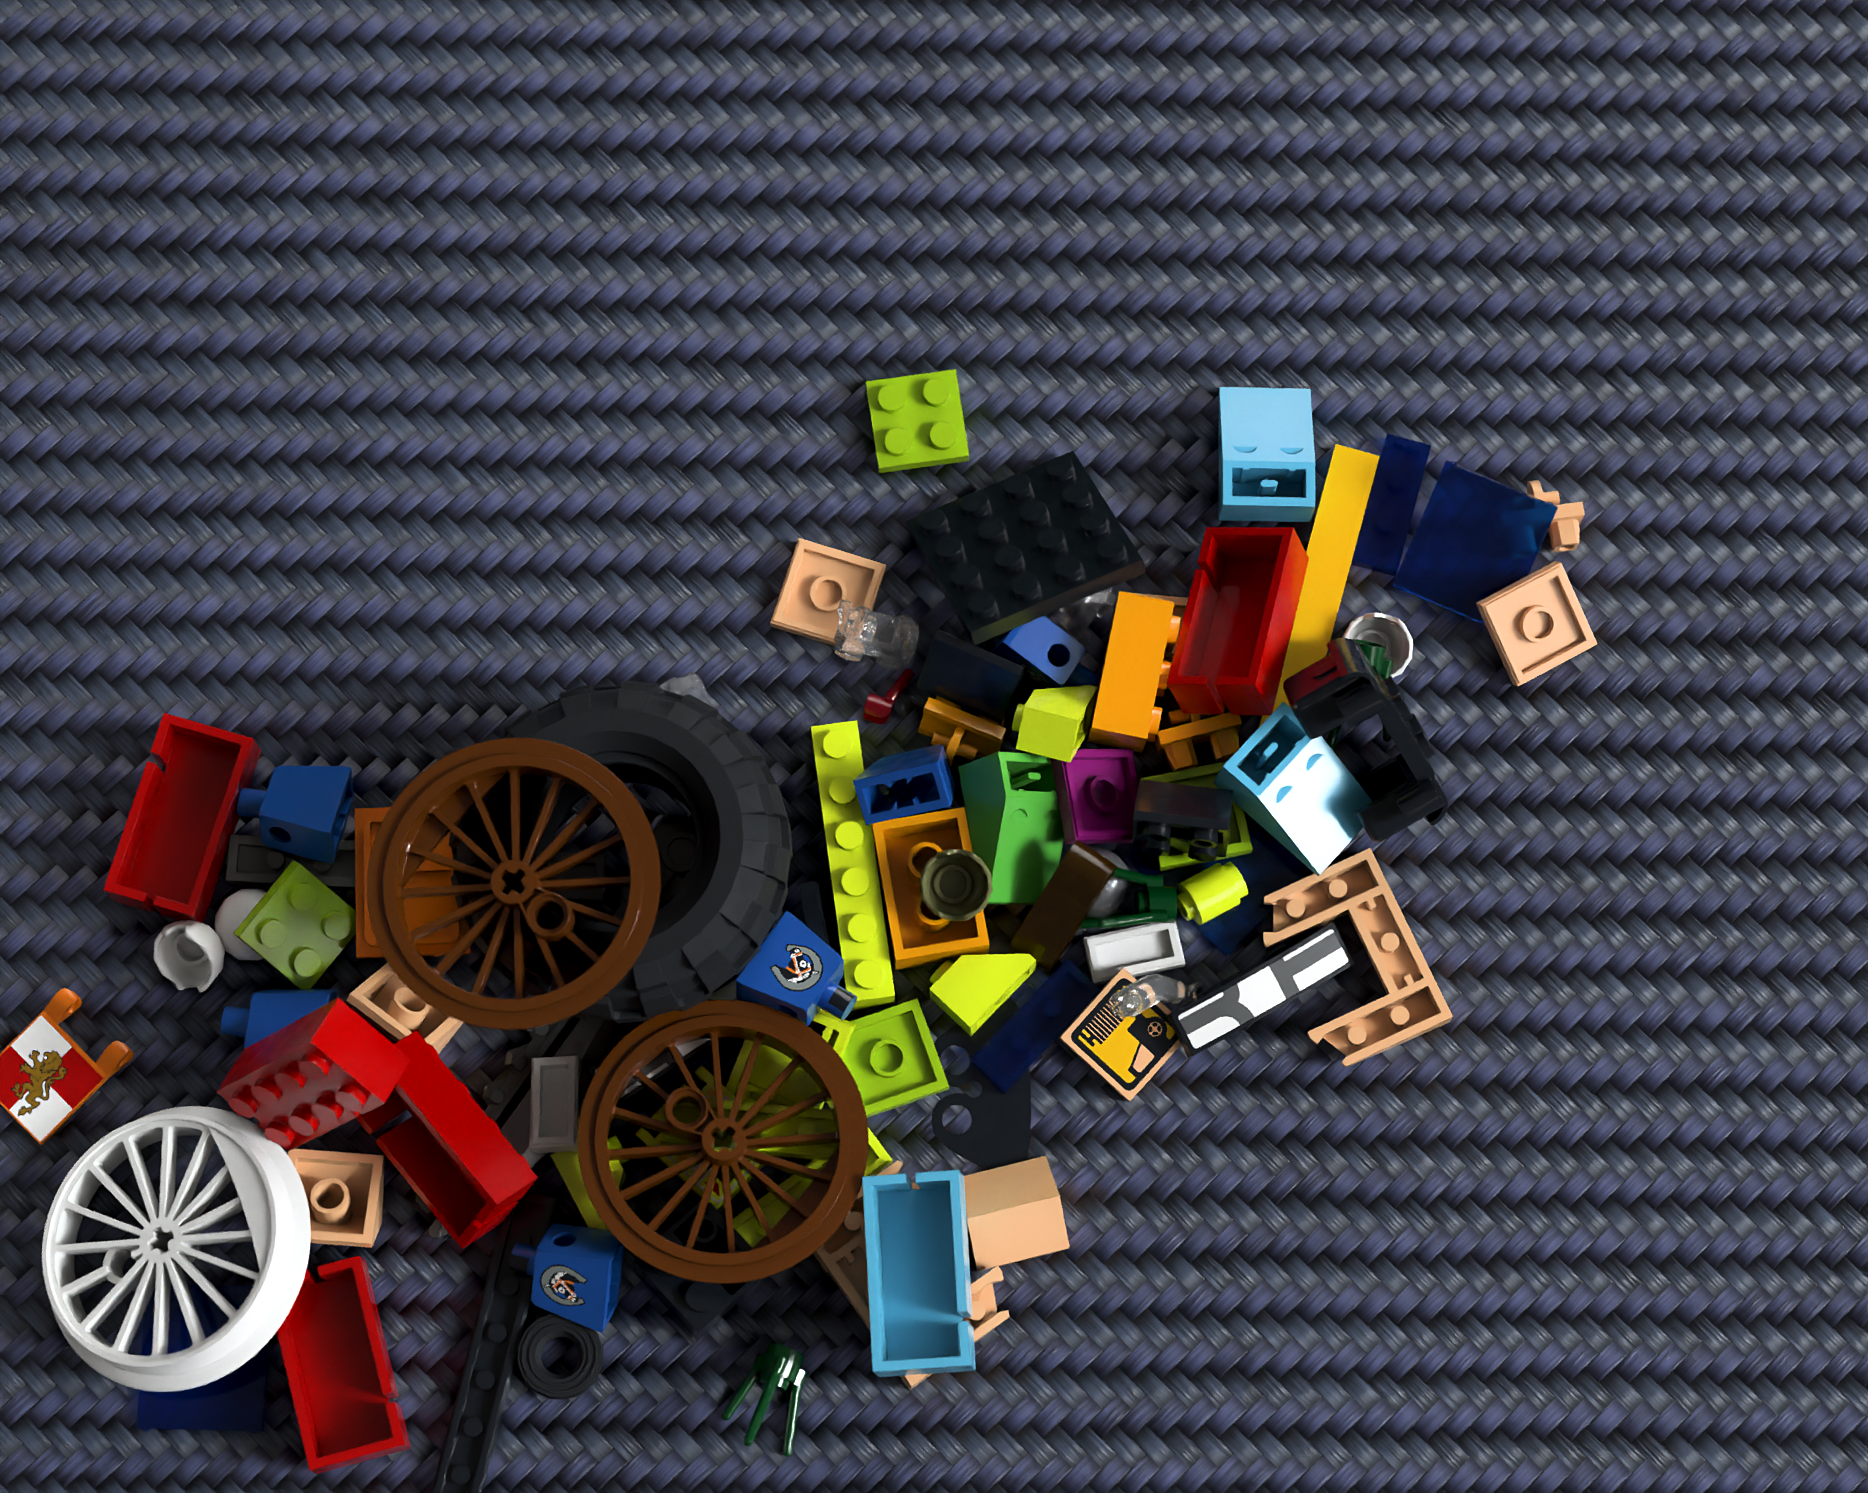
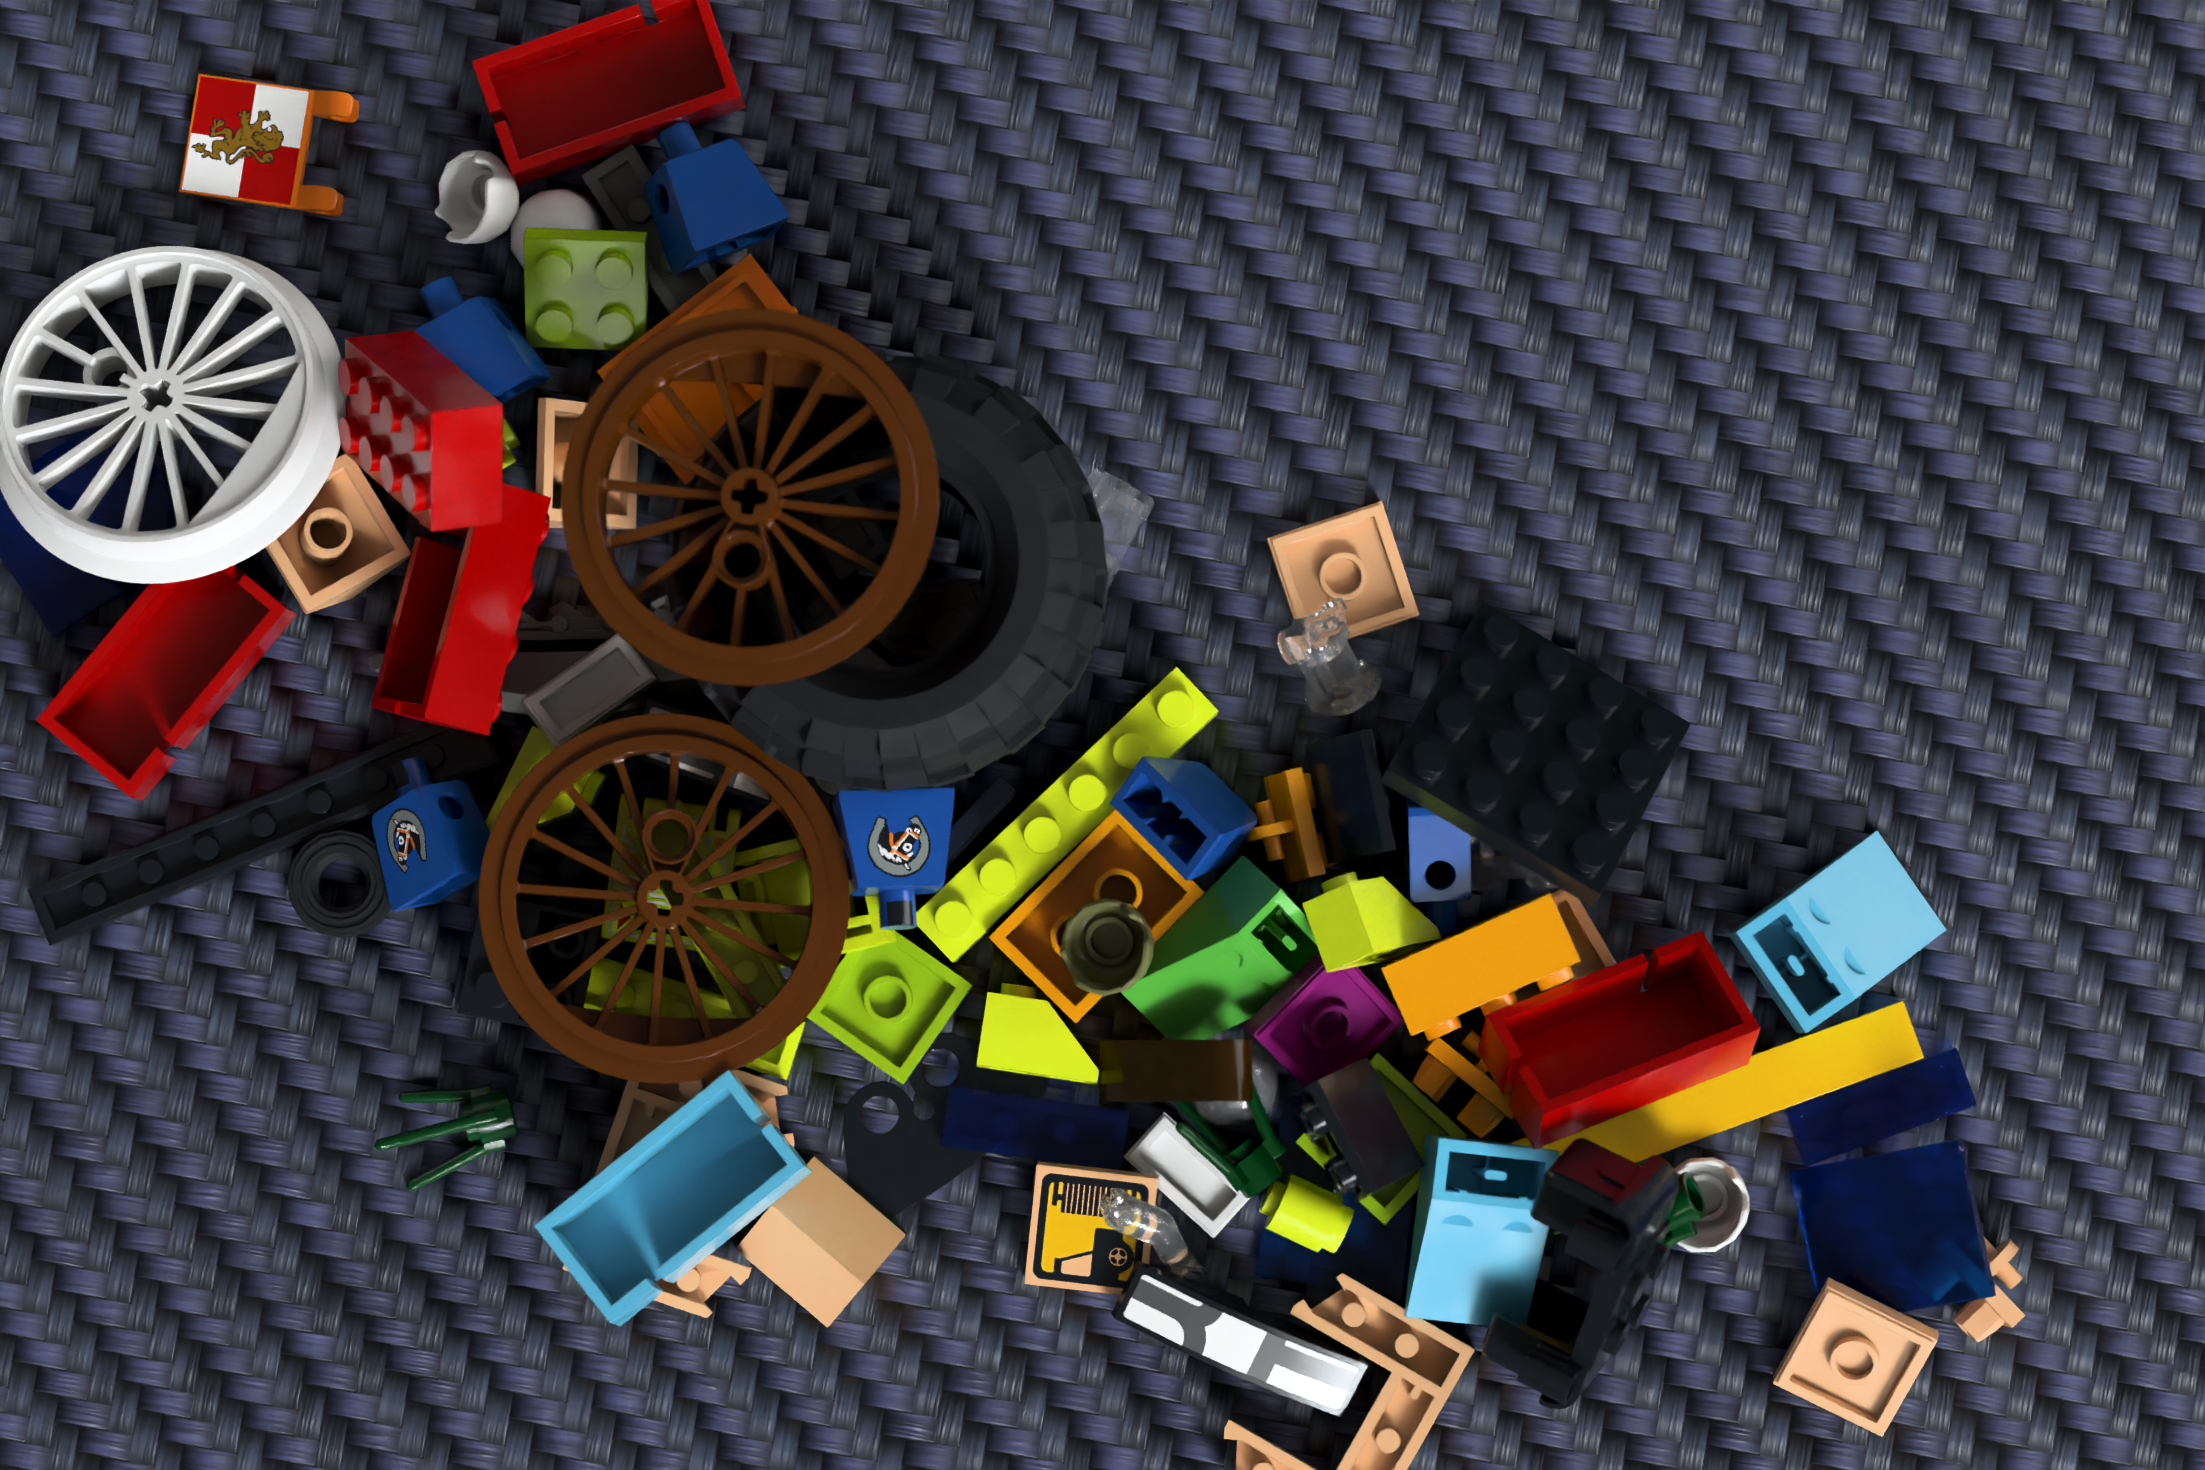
camera: 55 degrees right, 10 degrees up
(877, 708) = (1257, 720): dark red hand -> none
(917, 421) = (1604, 533): lime plate -> none

